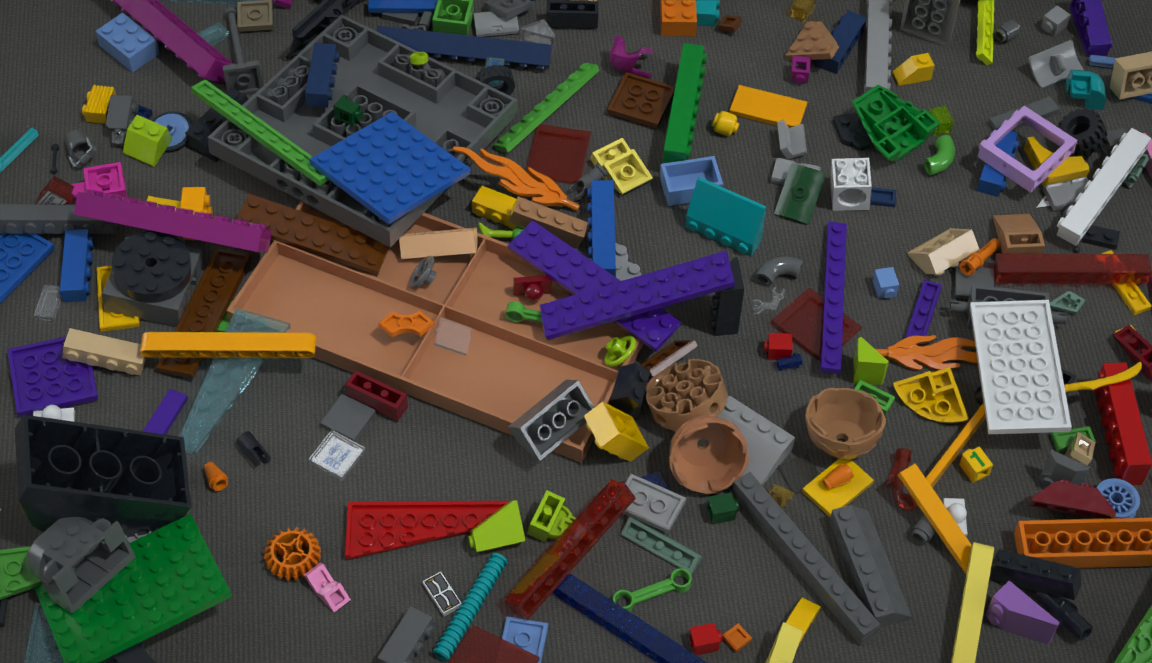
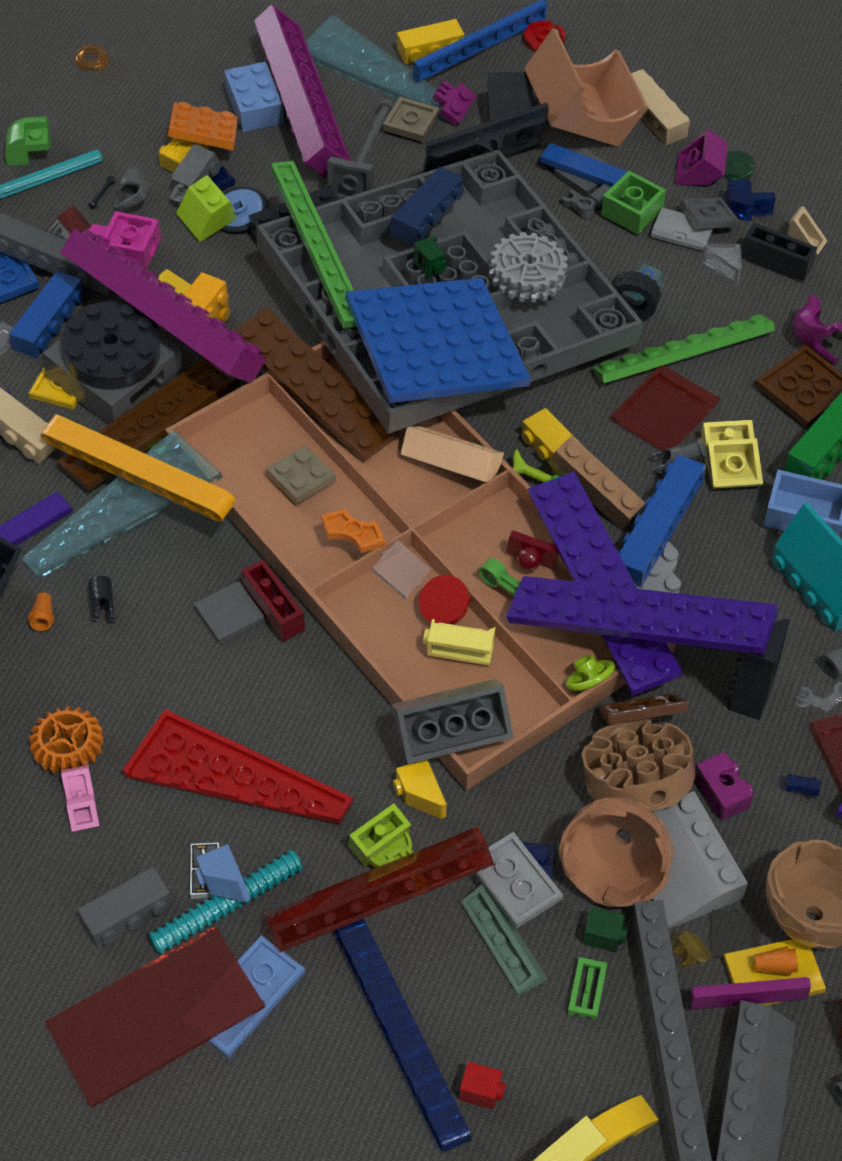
camera: 30 degrees right, 0 degrees up
(105, 79) = (203, 125): none -> orange plate
(214, 33) = (353, 123): clear light blue tile -> none
(337, 455) = (190, 649): clear tile -> none
(340, 302) = (300, 474): none -> dark tan plate
(419, 58) = (553, 230): lime tile -> none
(419, 91) = (528, 267): none -> light grey piece
(423, 273) = (412, 481): dark grey piece -> none
(462, 588) = (222, 874): none -> medium blue slope
(471, 46) = (633, 244): dark blue brick -> none
(496, 344) = (444, 599): none -> red tile
(499, 529) = (313, 825): lime slope -> none
(522, 368) = (459, 643): none -> light yellow window
(524, 183) = (615, 448): orange piece -> none
(553, 475) = (420, 788): none -> yellow slope
(615, 432) = (521, 771): yellow brick -> none
(631, 389) = (573, 727): black slope -> none
(655, 589) = (456, 991): bright green piece -> none
(737, 564) = (583, 1010): none -> bright green tile
(737, 638) = (526, 1105): orange tile -> none
(745, 392) = (724, 799): none -> magenta brick
(778, 345) = (800, 758): red brick -> none
(835, 501) = (753, 992): none -> magenta tile

